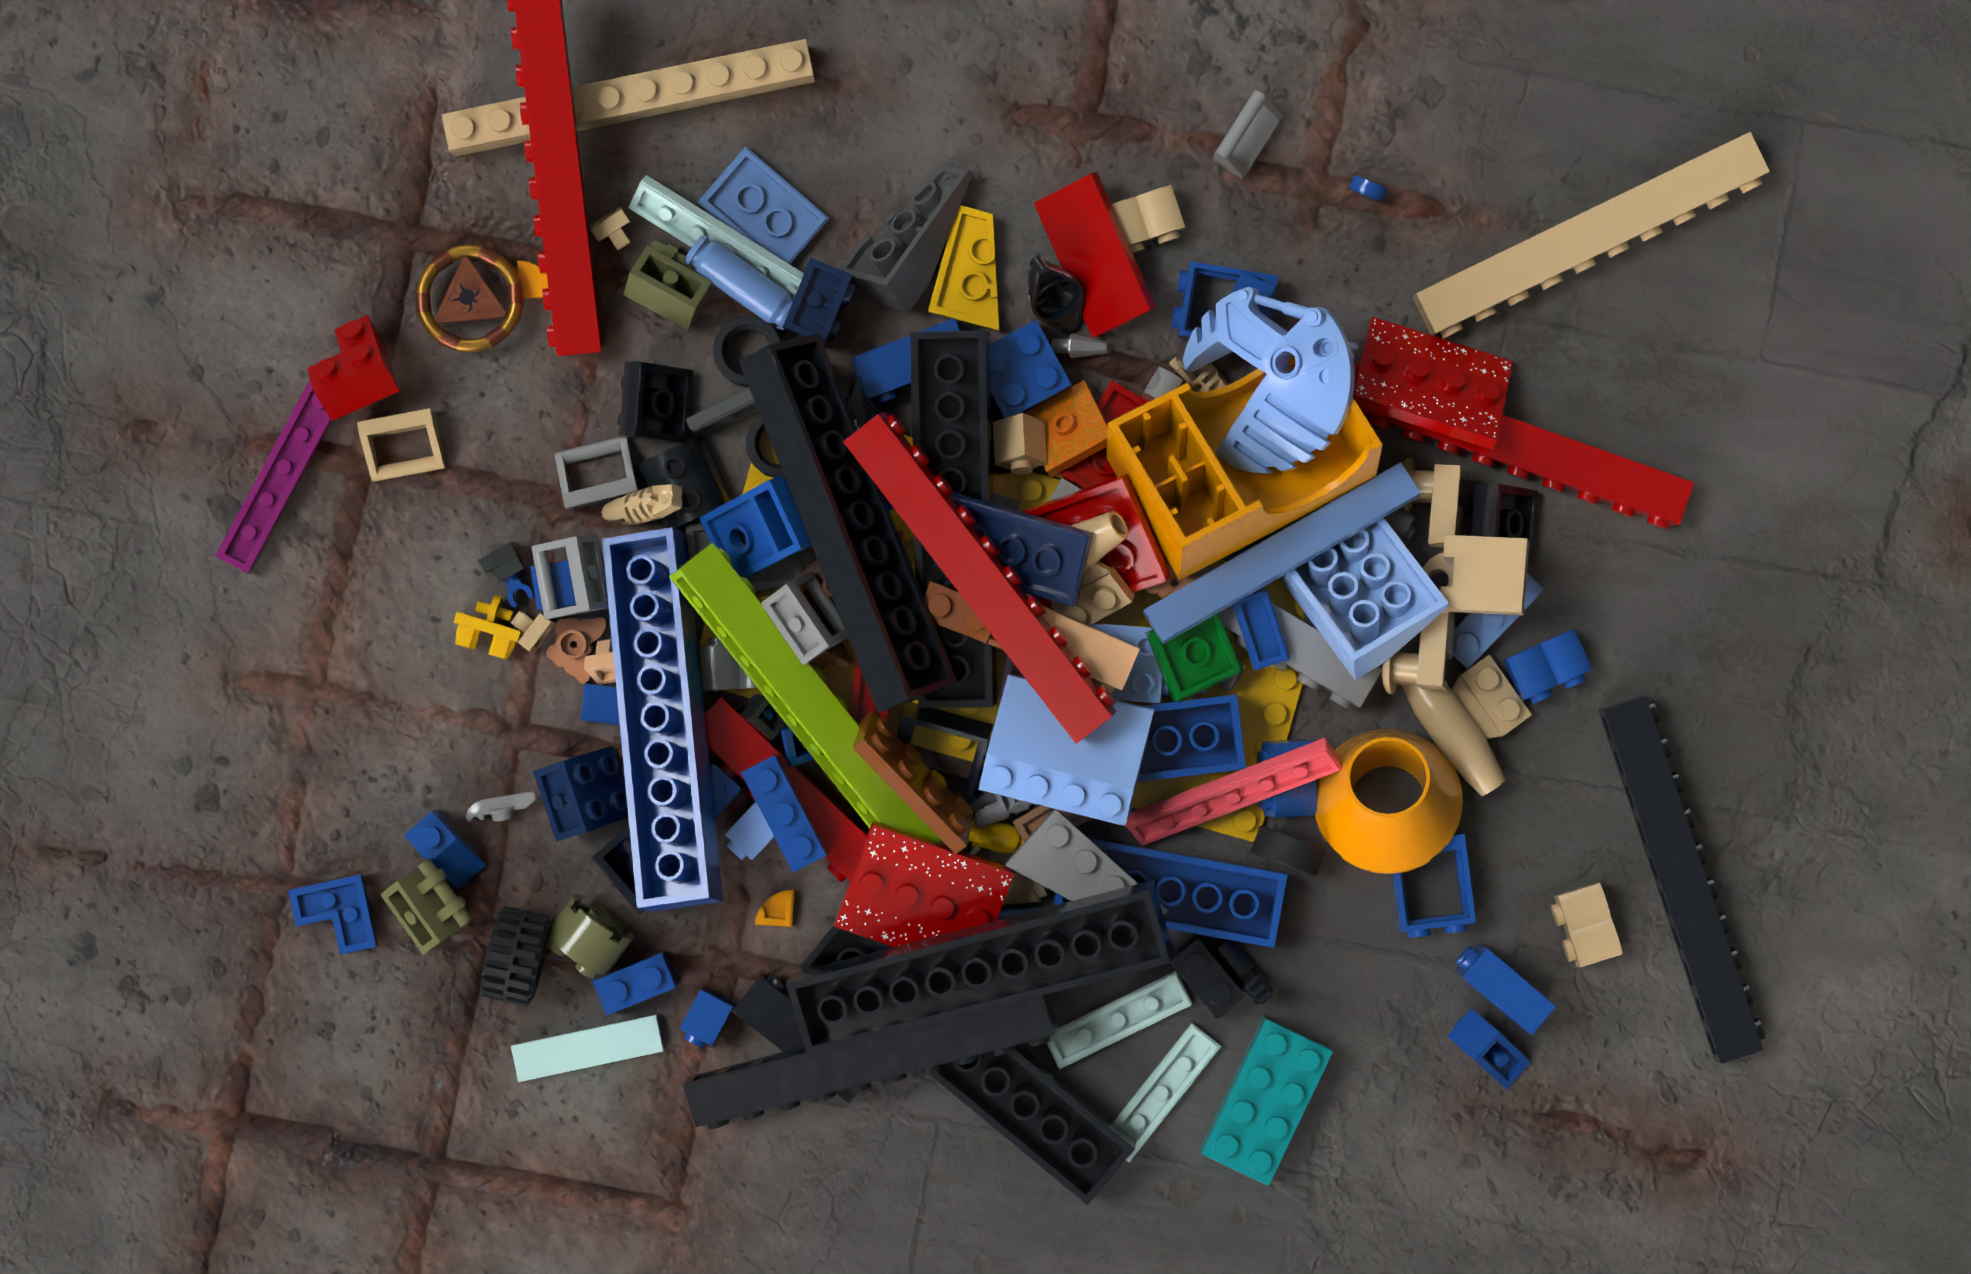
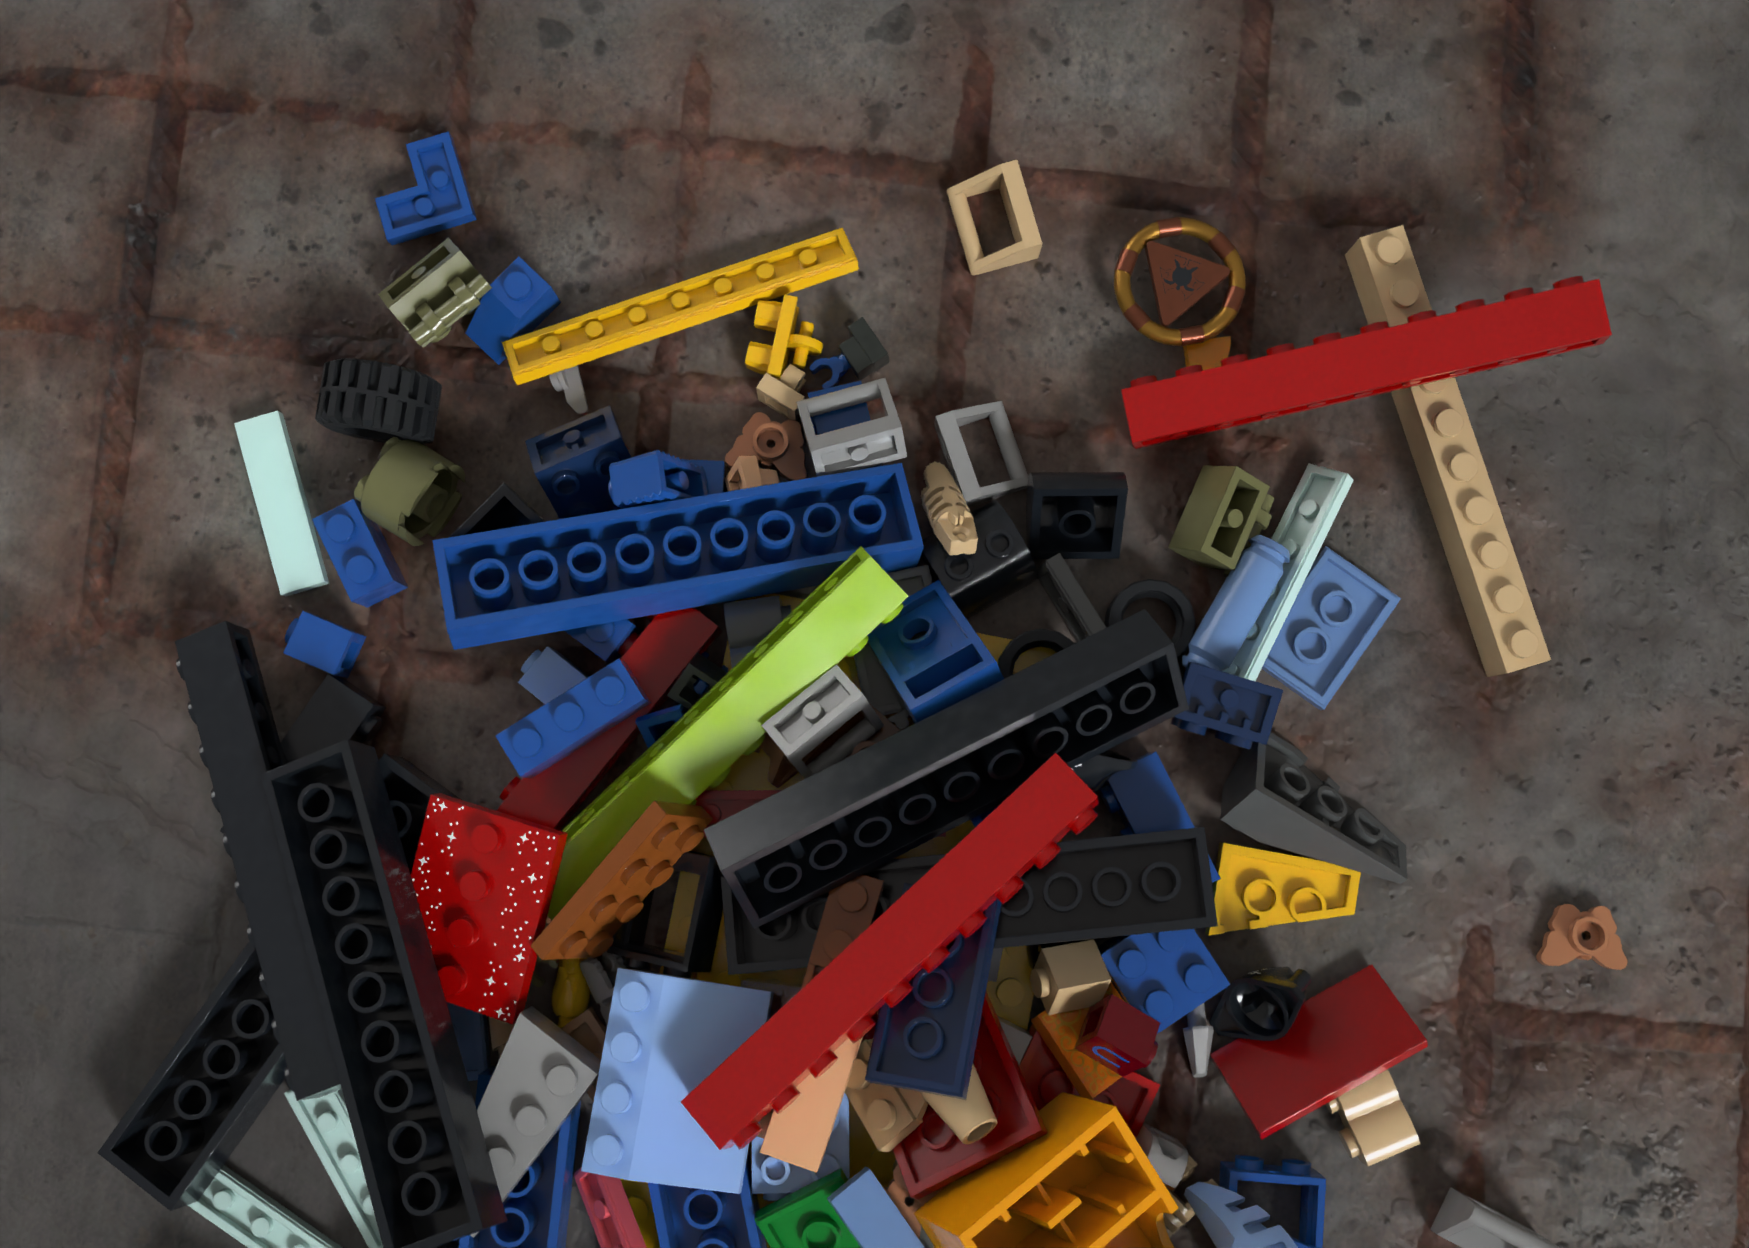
camera: 80 degrees right, 5 degrees down
(275, 483) = (954, 86): magenta plate -> none
(356, 374) = (1074, 150): red brick -> none
(453, 708) = (679, 306): none -> yellow tile
(601, 736) = (654, 479): none -> blue brick
(610, 226) = (1285, 443): tan tile -> none
(777, 910) = (464, 719): light orange tile -> none
(1029, 46) = (1565, 941): none -> nougat animal
(1066, 411) = (1118, 1036): none -> dark red brick

